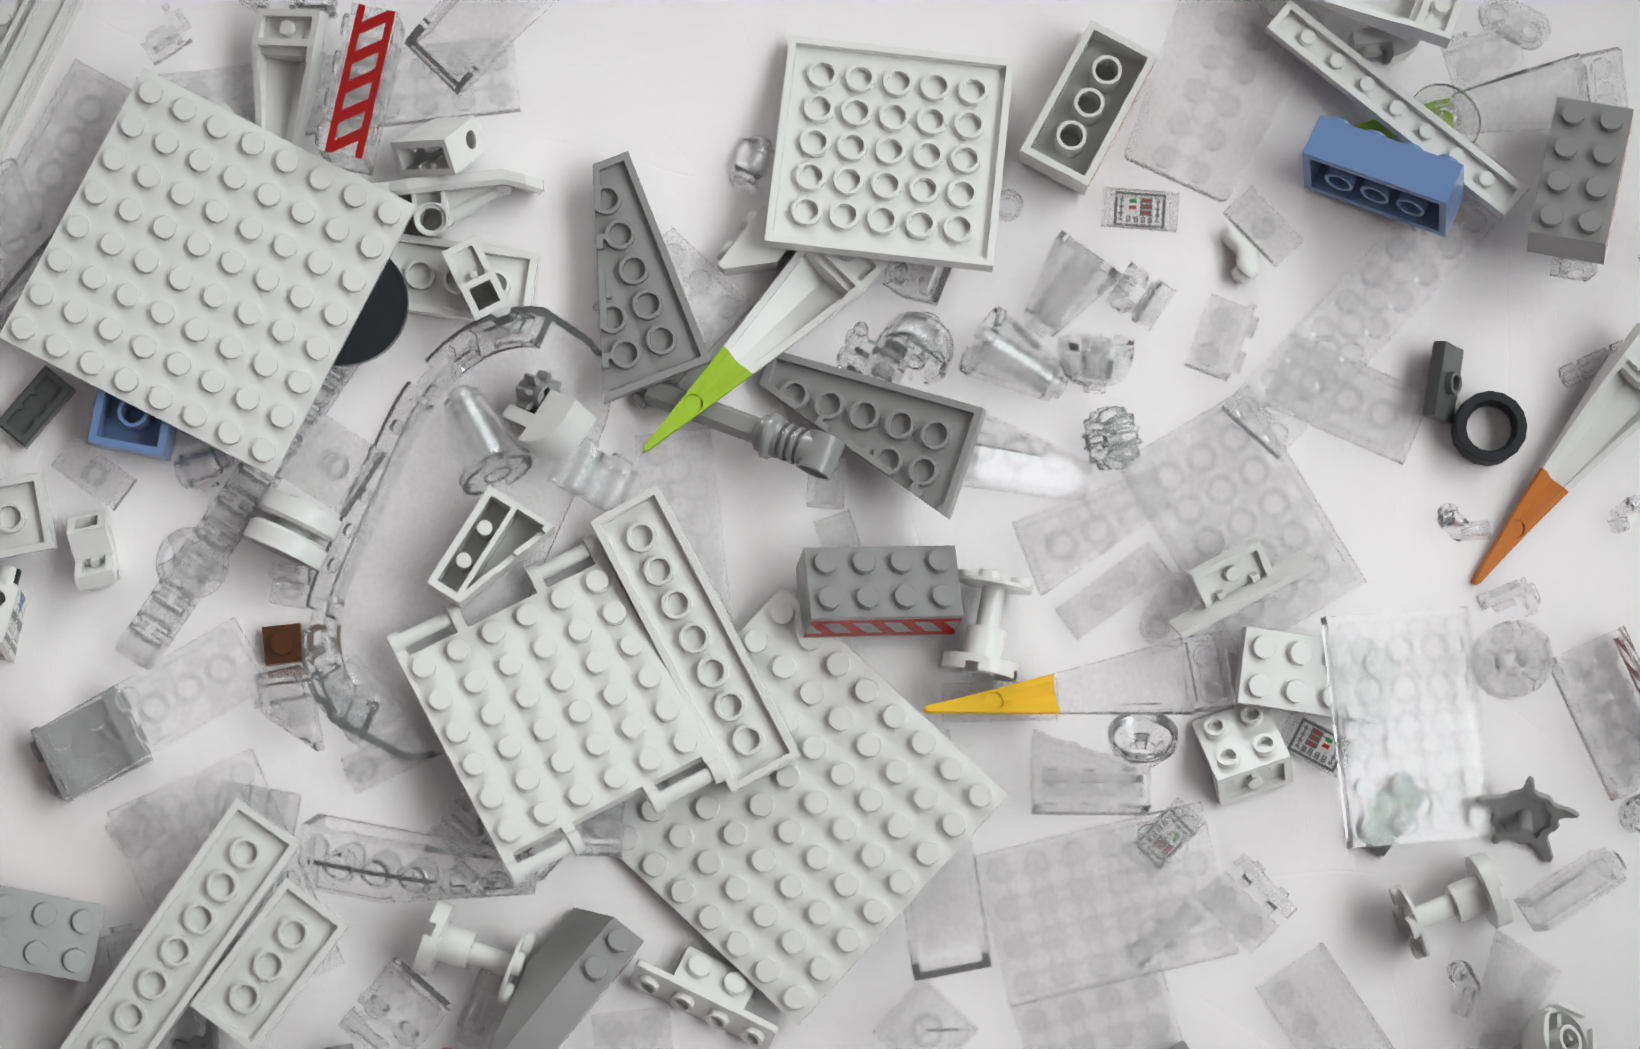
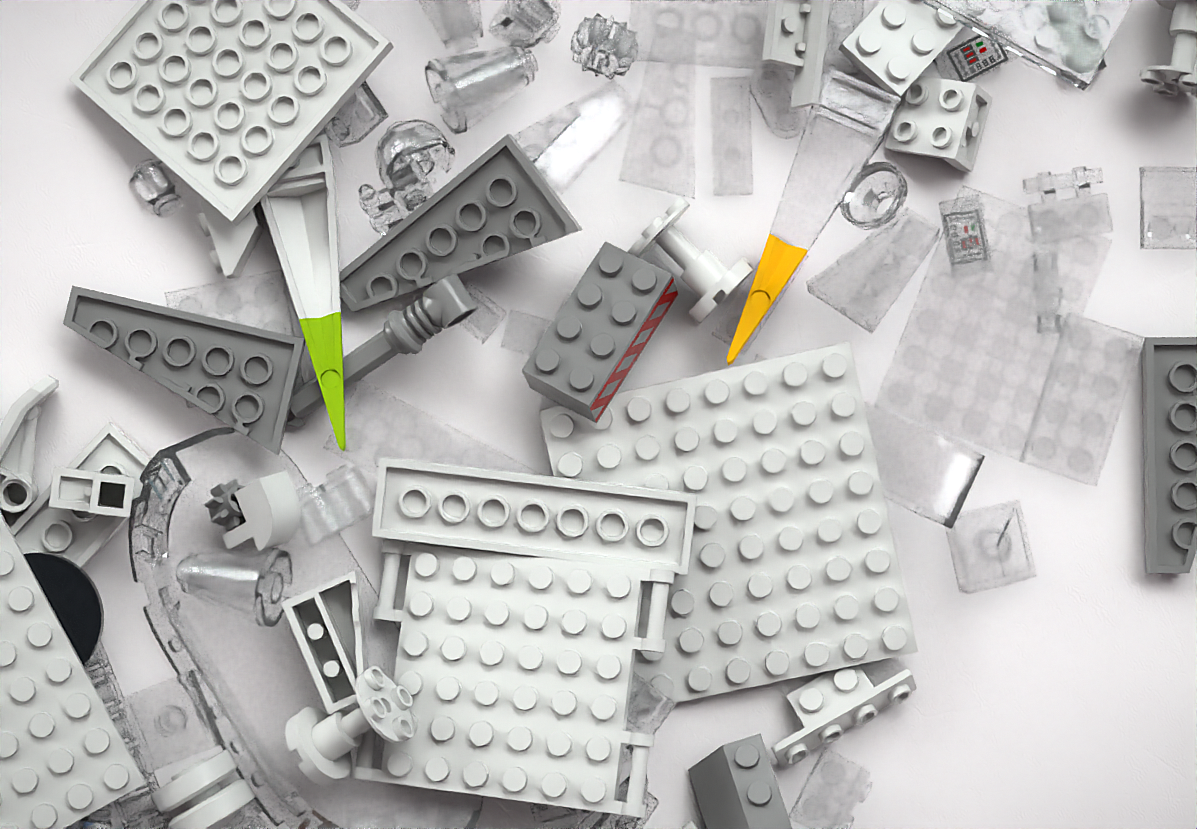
camera: 55 degrees left, 5 degrees up
(404, 597) = (327, 740): none -> white piece

